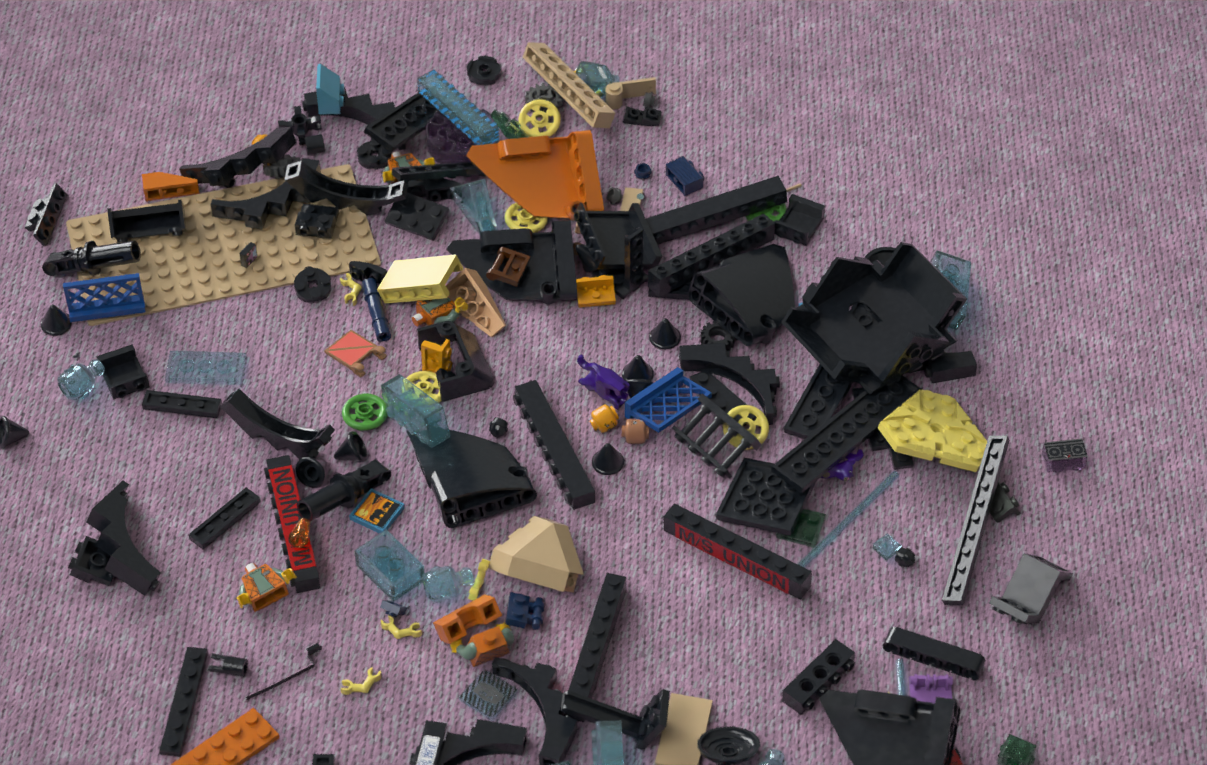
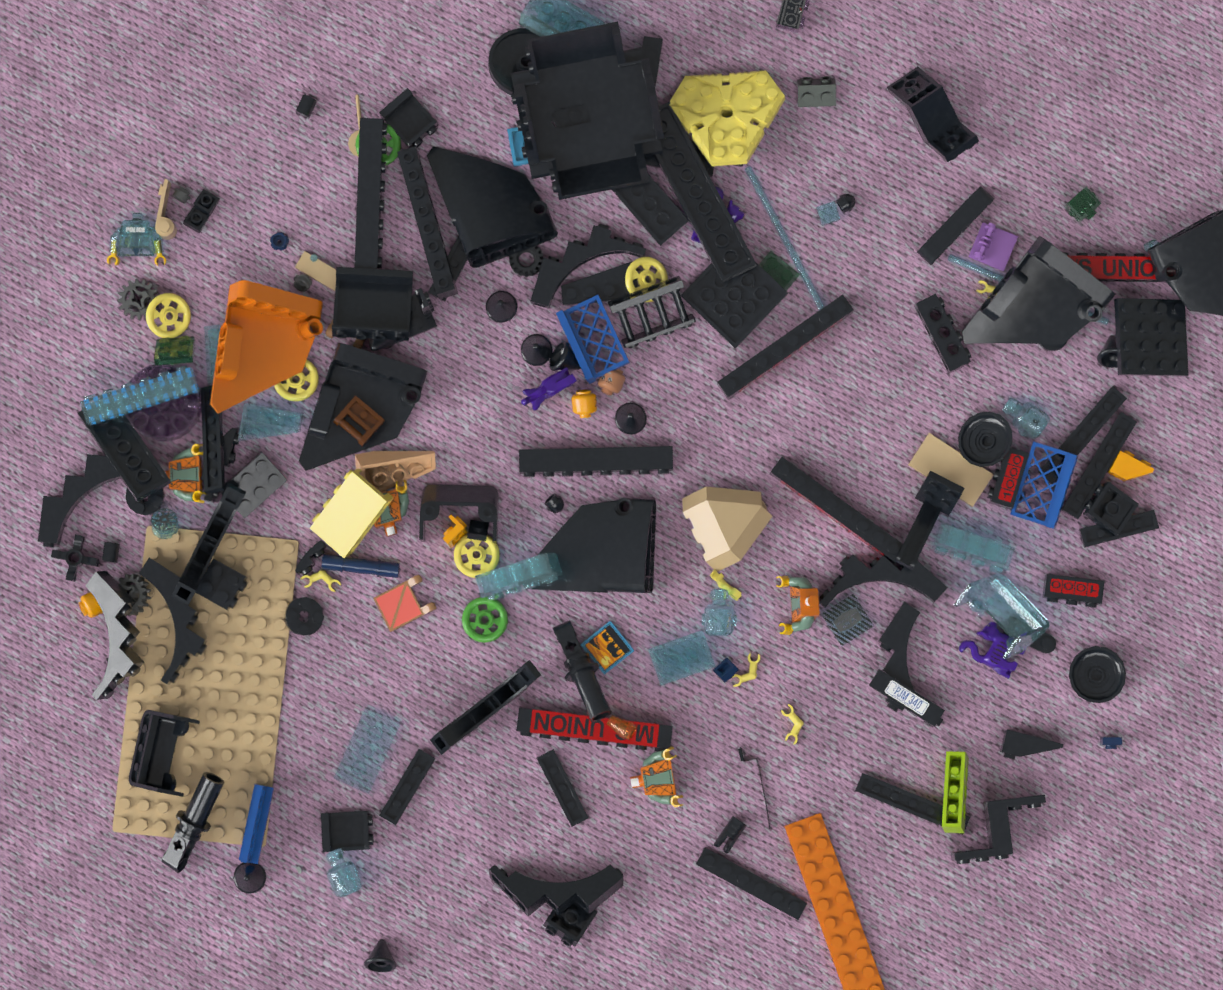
camera: 65 degrees left, 35 degrees up
(45, 214) = (98, 850): black bracket -> none
(165, 185) = (106, 722): orange slope -> none
(248, 254) = (246, 669): black tile -> none
(311, 471) = (545, 690): black hat -> none
(329, 91) = (59, 516): medium azure slope -> none
(352, 449) = (529, 645): black hat -> none
(355, 168) = (164, 524): none -> clear light blue wheel
(455, 624) = (760, 598): orange arch -> none
(477, 75) = (80, 343): black plate -> none
(518, 609) = (773, 563): dark blue plate -> none
(569, 85) = (139, 270): tan brick -> none
(595, 291) = (426, 350): light orange bracket -> none
(684, 175) = (304, 203): dark blue brick -> none
(770, 151) = (306, 106): none -> black brick
(975, 520) = (836, 123): plate -> none

